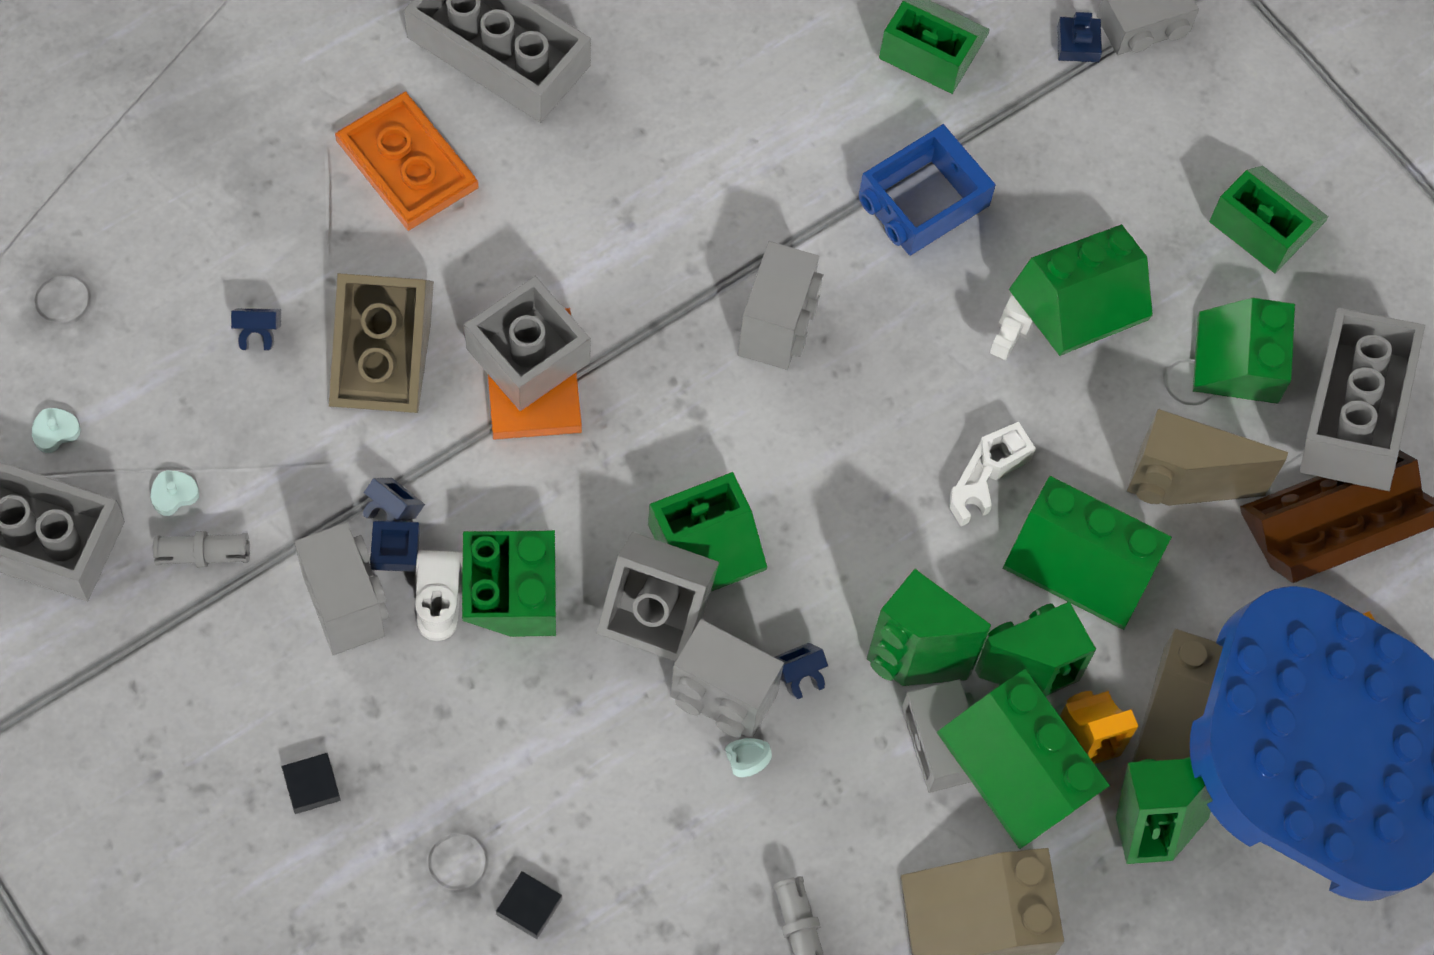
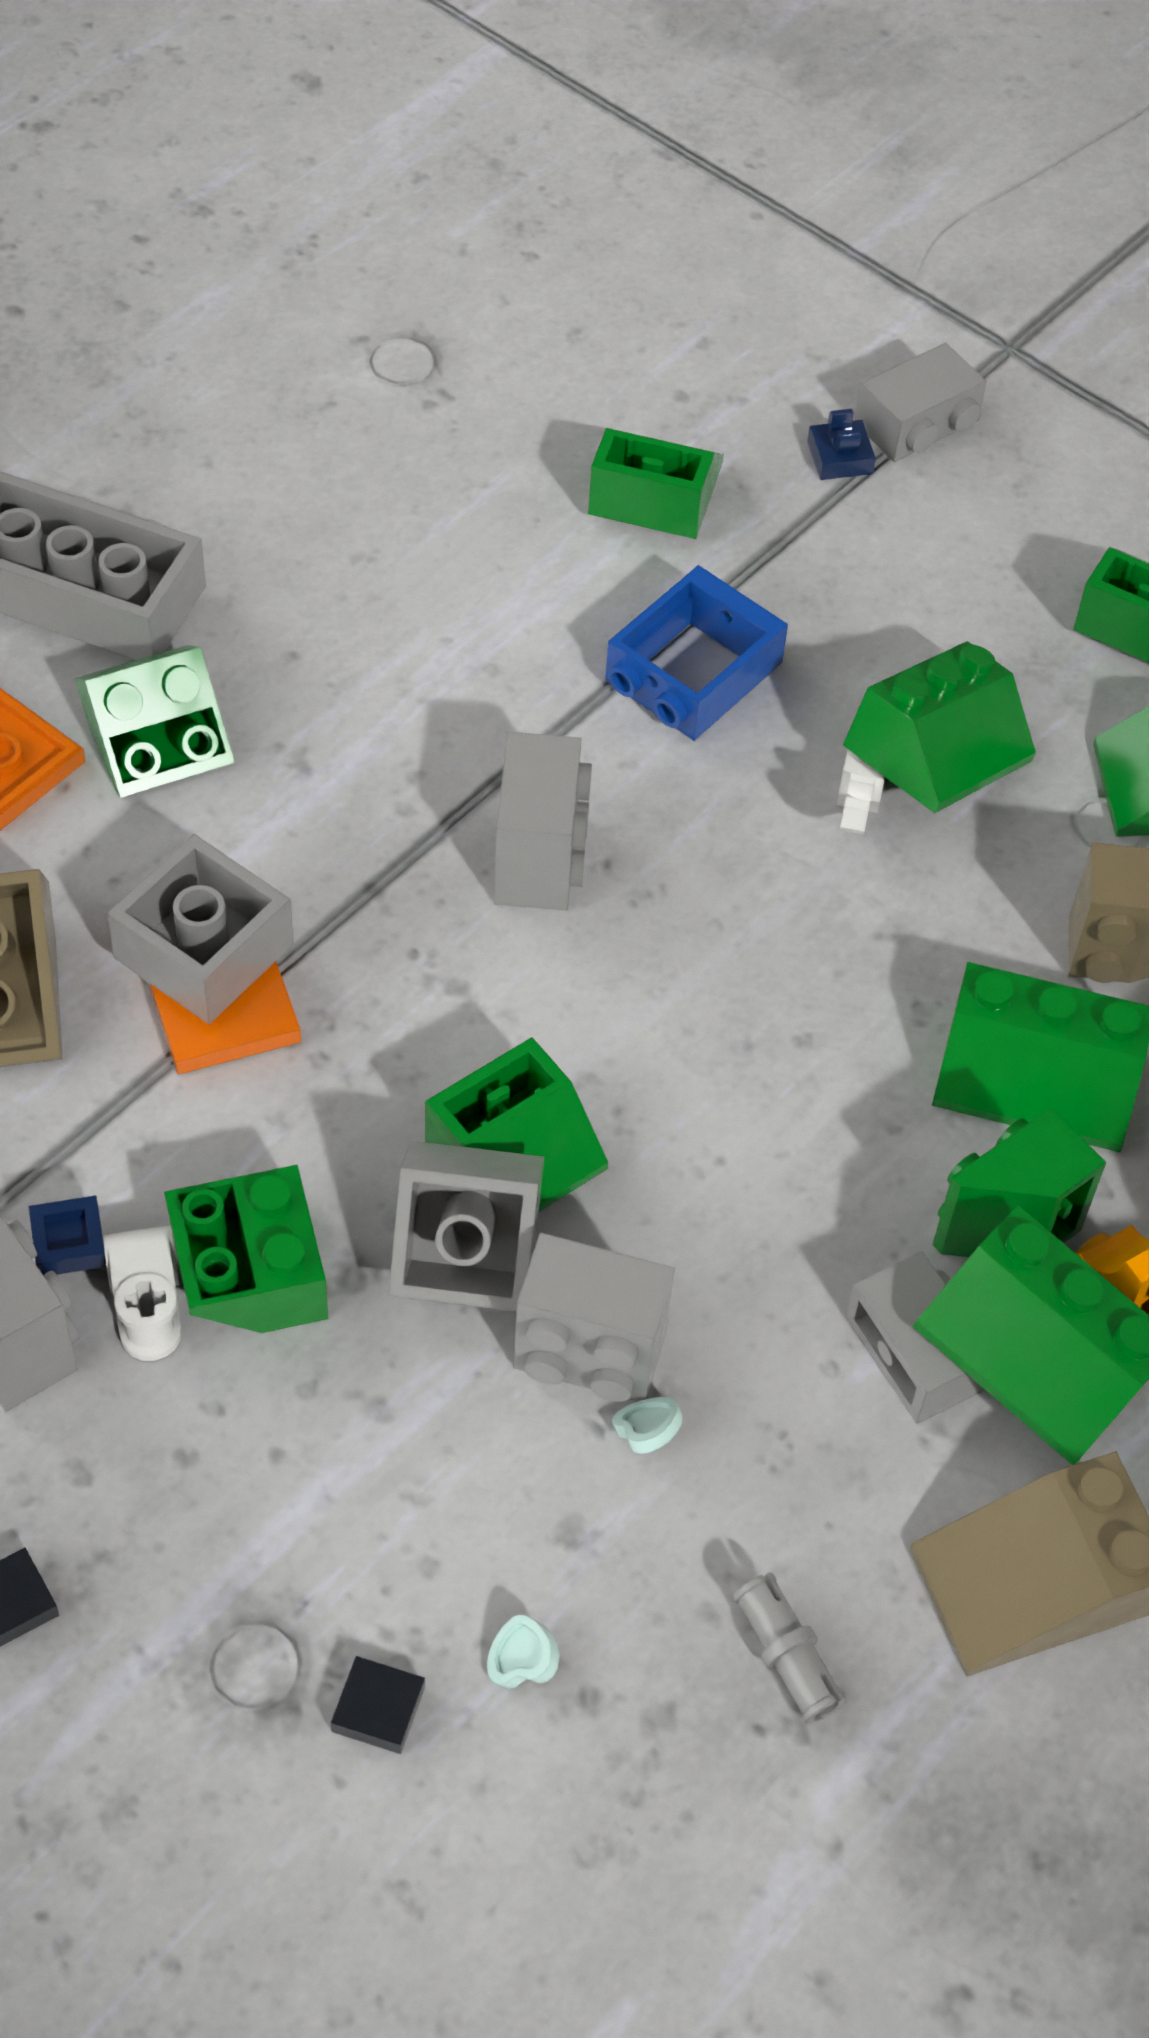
camera: 10 degrees left, 10 degrees down
(393, 499) = (48, 1176): dark blue tile -> none
(531, 168) = (155, 719): none -> slope
(628, 892) = (522, 1653): none -> light aqua piece
(801, 663) = (697, 1278): dark blue tile -> none
(926, 635) = (863, 1195): green slope -> none
(973, 485) = (863, 1006): white piece -> none

